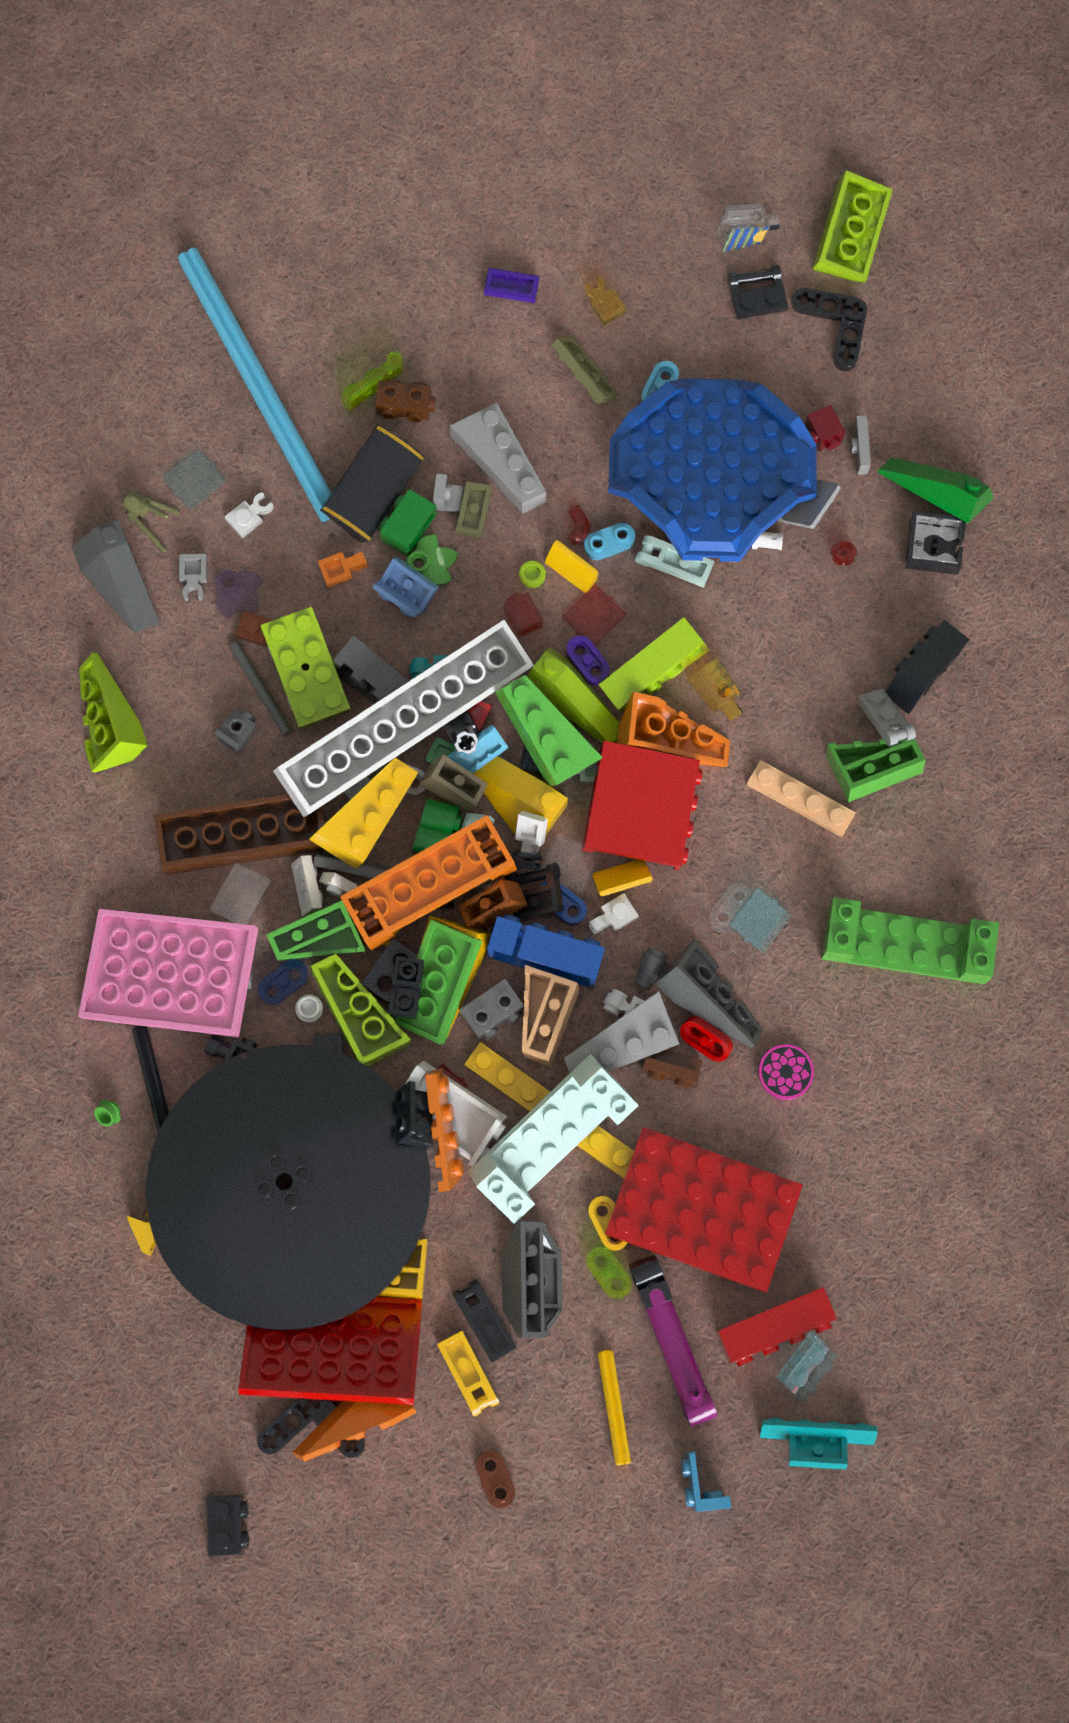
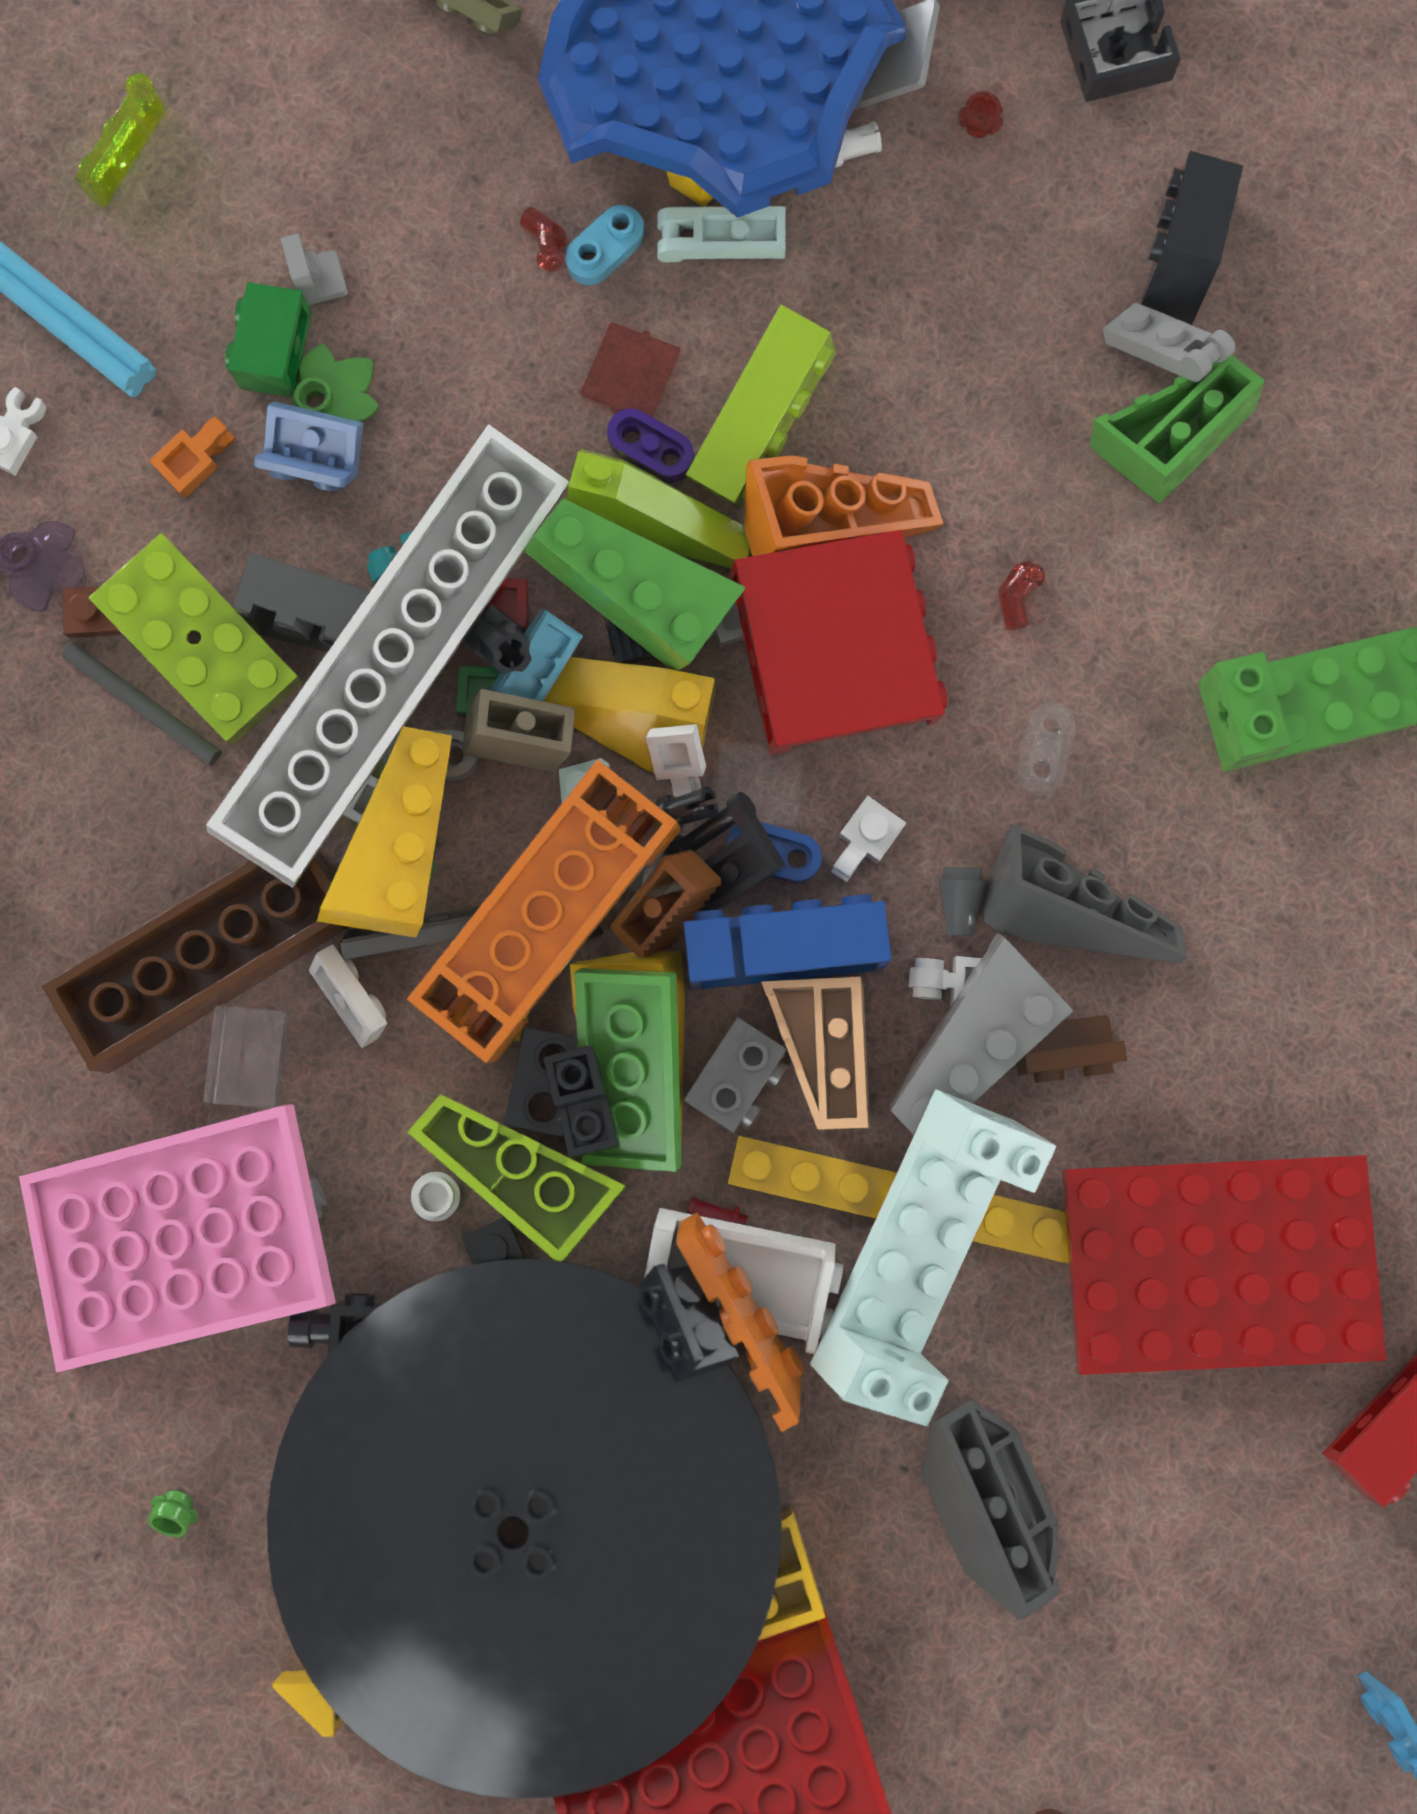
camera: 15 degrees left, 5 degrees up
(150, 1075) = (219, 1417): black axle -> none
(237, 739) = (138, 801): dark grey brick -> none
(281, 980) = (373, 1169): clear blue plate -> none
(317, 935) = (396, 1074): bright green wedge -> none
(336, 884) = (396, 975): white plate -> none
(372, 484) = (184, 300): black slope -> none
(404, 400) = (184, 149): reddish brown brick -> none
(436, 824) = (518, 810): green brick -> none
(467, 1372) = (948, 1699): yellow plate -> none
(474, 509) = (368, 279): olive plate -> none
(484, 1322) = (941, 1601): black plate -> none
(495, 449) = (369, 172): light grey wedge -> none
(522, 614) = (516, 411): clear red brick -> none
(532, 574) = (504, 345): lime tile -> none
(571, 566) = (562, 306): yellow slope -> none
(601, 1223) = (1062, 1351): yellow plate -> none
(608, 1273) = (1107, 1432): clear neon green plate -> none
(614, 1407) = (1212, 1653): yellow axle -> none
(621, 877) = (853, 772): yellow slope -> none
(672, 1340) = (1262, 1502): magenta piece -> none
(706, 1039) = (1097, 978): red plate -> none
(715, 678) = (877, 405): clear yellow torso -> none
(750, 816) = (1014, 589): none -> clear red arm
(760, 920) = (1102, 749): clear light blue piece -> none
(786, 1072) = (1249, 978): tile -> none
(801, 798) = (1082, 528): light nougat plate -> none

